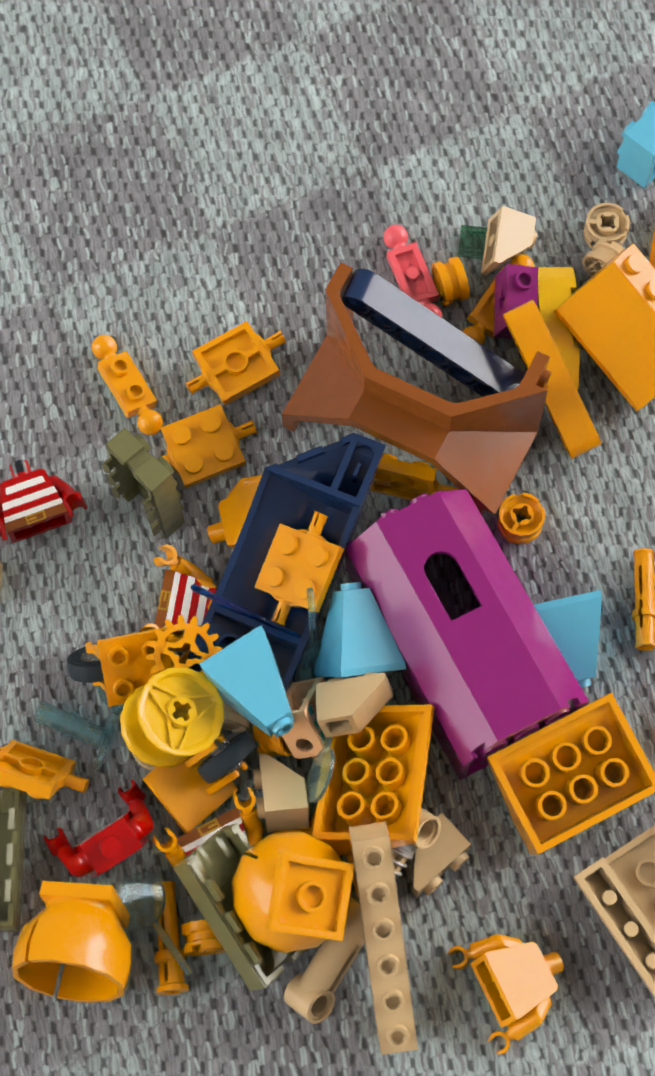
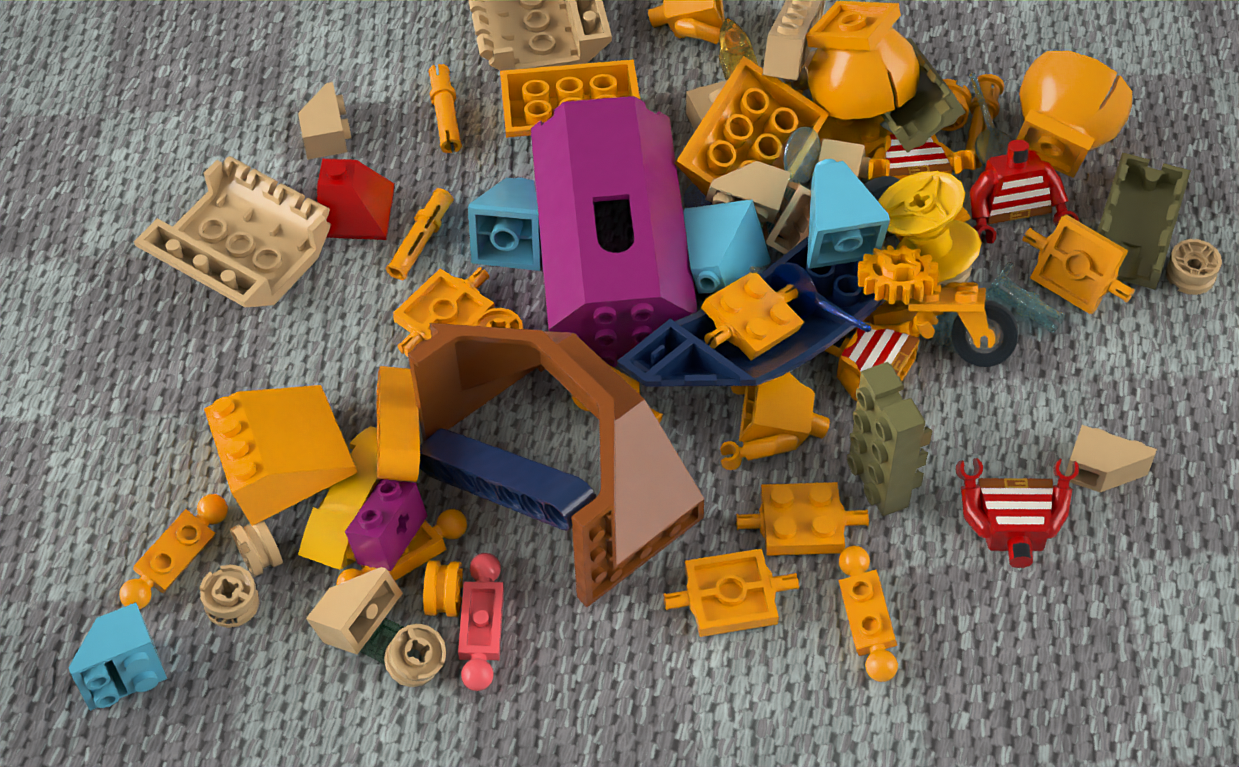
camera: 160 degrees left, 15 degrees down
(444, 238) = (410, 670): none -> tan wheel
(444, 930) = (733, 46): none -> clear yellow plate
(579, 525) = (441, 301): none -> light orange plate

